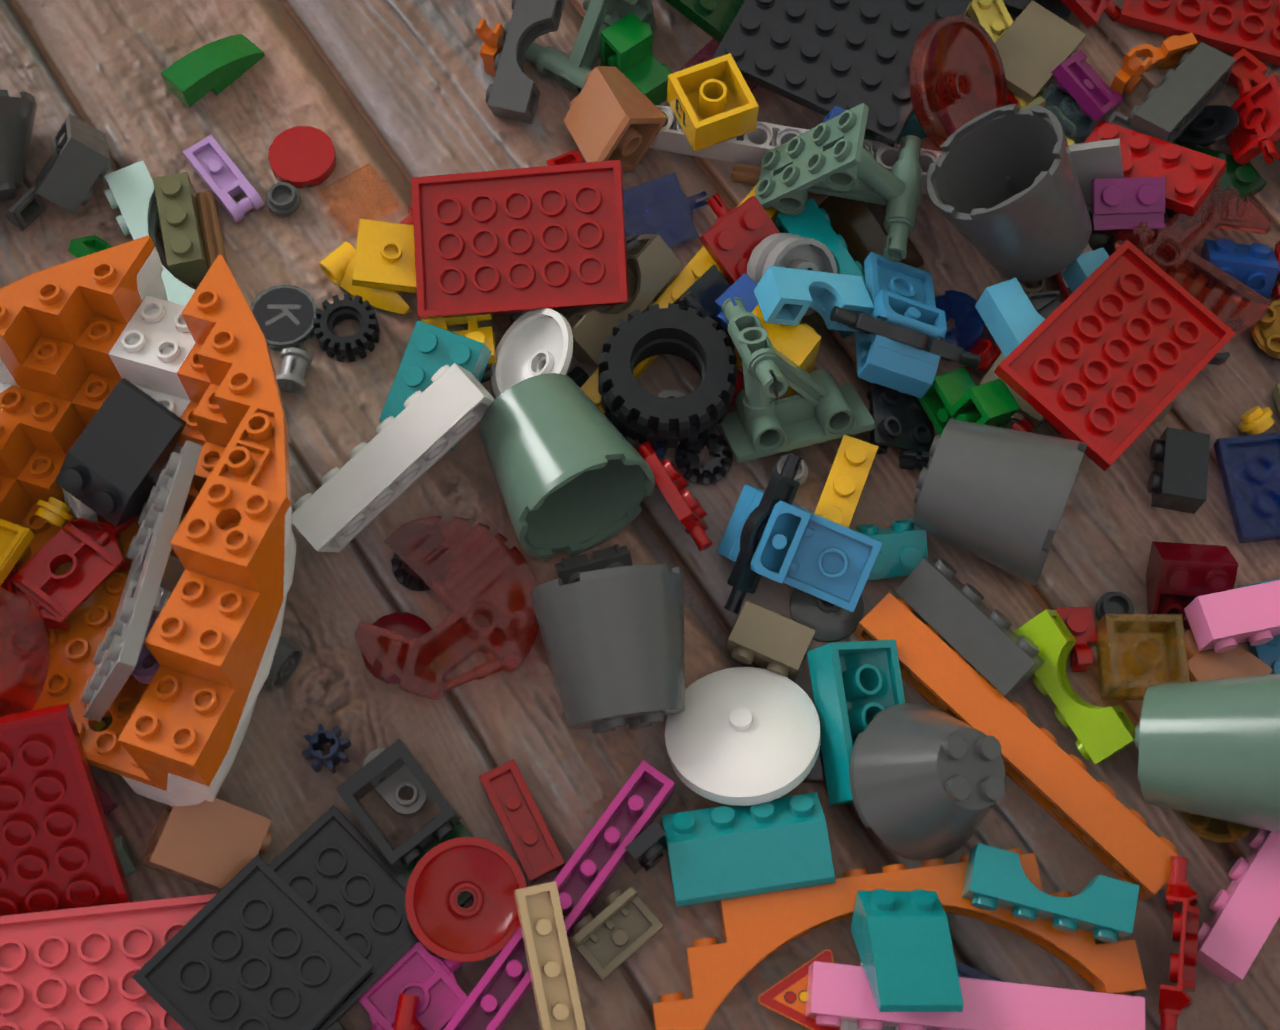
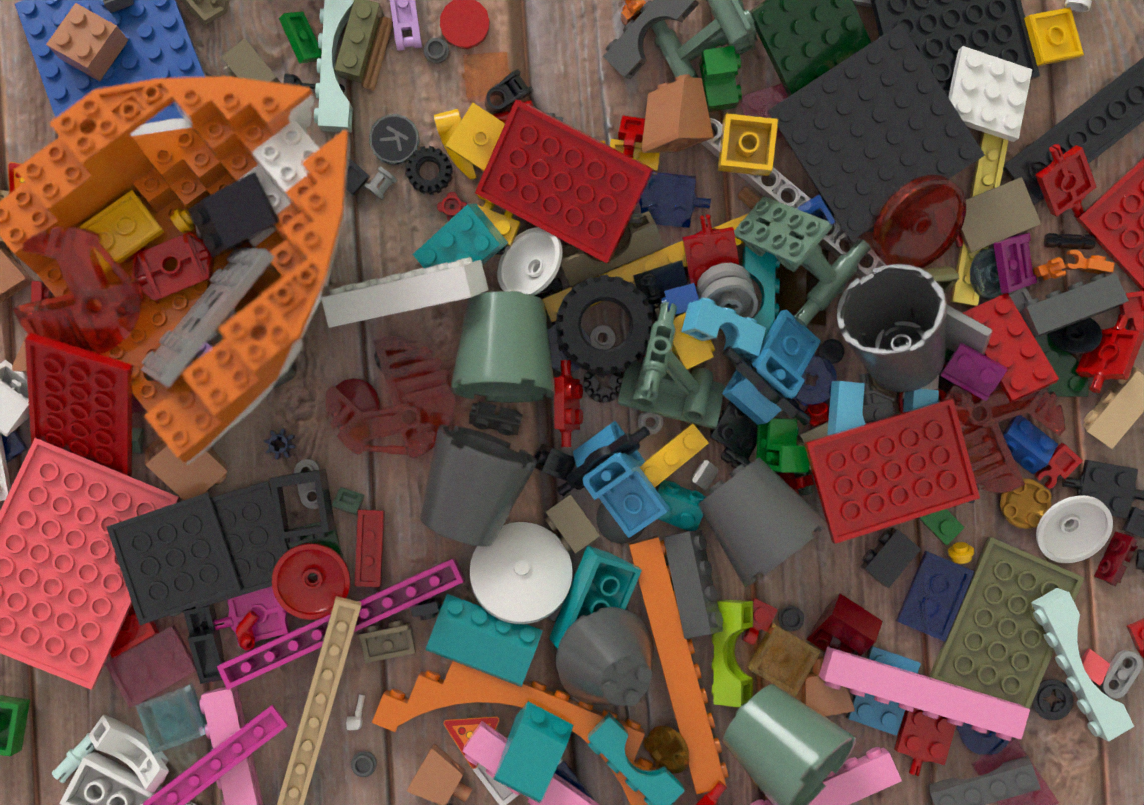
camera: 30 degrees right, 20 degrees up
(392, 197) = (509, 89): none -> black piece
(392, 347) = (451, 199): none -> red plate
(459, 778) = (348, 501): none -> sand green slope
(705, 578) = (554, 462): none -> black bracket
(894, 496) = (704, 474): none -> white slope
(950, 279) = (832, 350): none -> black plate
(1074, 856) = (667, 749): none -> pearl gold dish
(1109, 52) = (1069, 241): none -> black axle
(1207, 403) = (942, 525): none -> green plate

